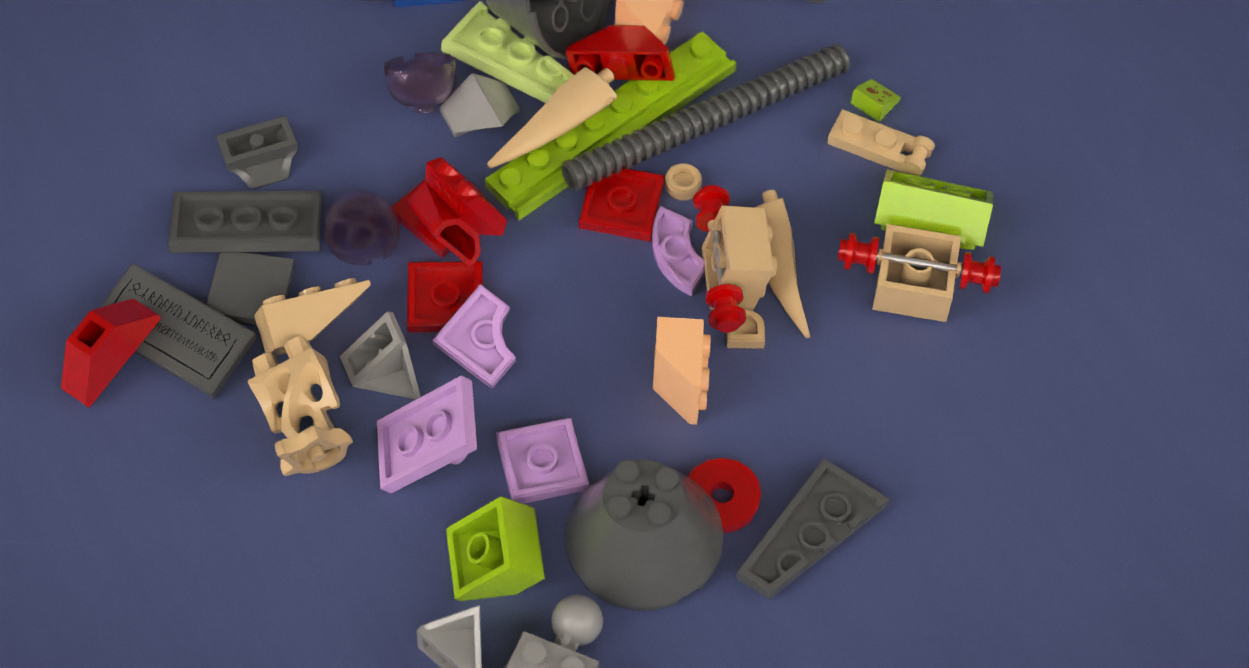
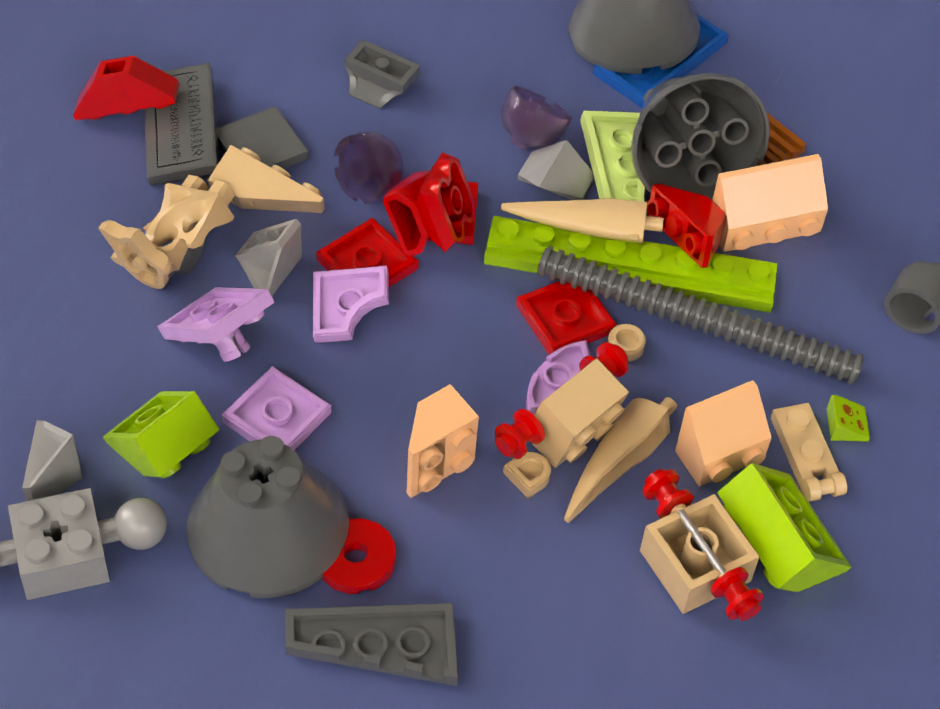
camera: 50 degrees right, 5 degrees down
(246, 221) = (309, 102): dark grey tile -> none
(834, 183) = (724, 434): none -> light nougat slope

